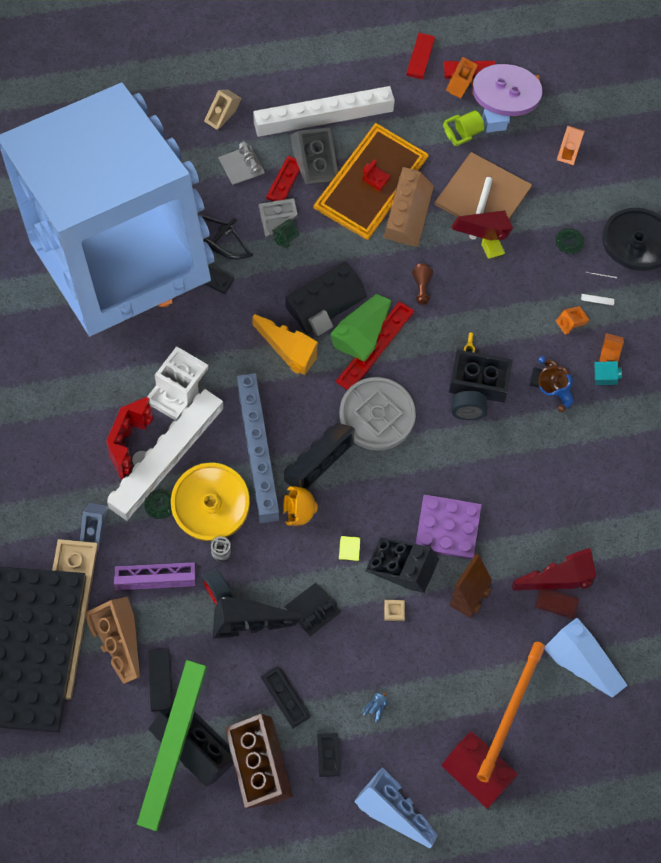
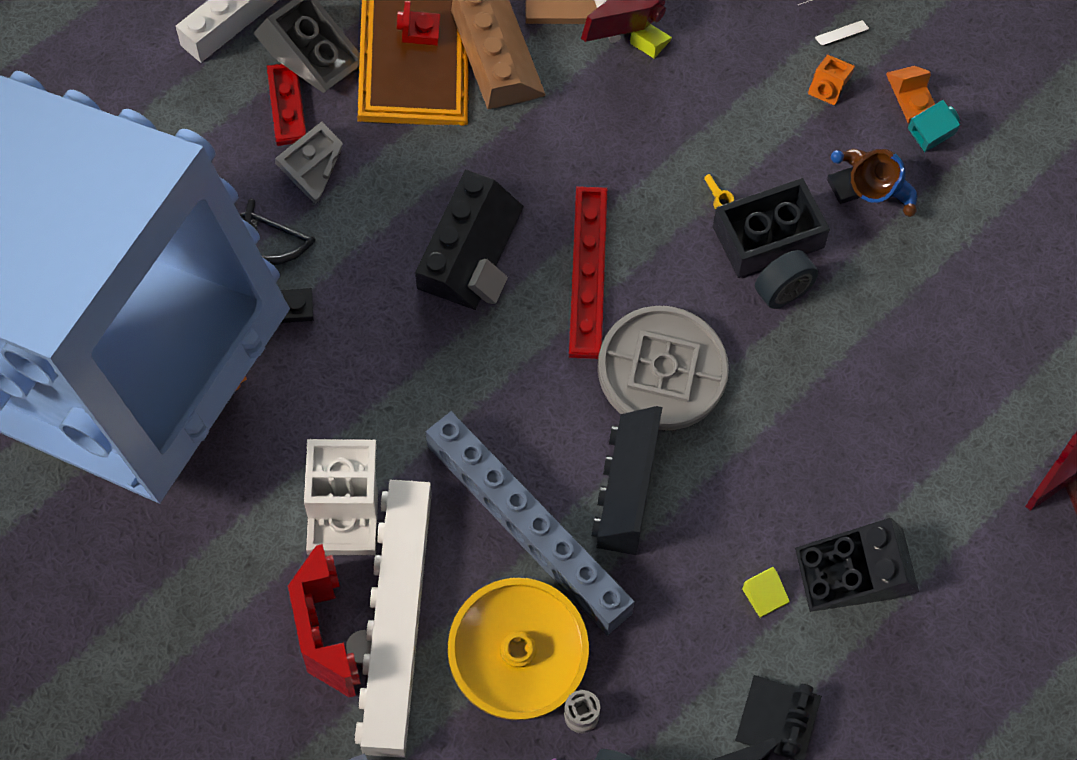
camera: 30 degrees left, 0 degrees up
(151, 507) = (427, 711): clear green gear -> none
(222, 108) = (121, 48): tan slope -> none
(241, 164) = (207, 113): light grey hinge -> none
(285, 233) = (344, 179): clear green bracket -> none
(294, 348) = (477, 342): light orange wedge -> none
(300, 503) = (649, 568): light orange cylinder -> none
(359, 330) = (554, 256): bright green wedge -> none
(394, 610) = (893, 644): tan tile -> none
(422, 274) = (582, 131): copper piece -> none
(449, 526) = (878, 472): medium lavender plate -> none
(471, 588) = (983, 544): reddish brown slope -> none

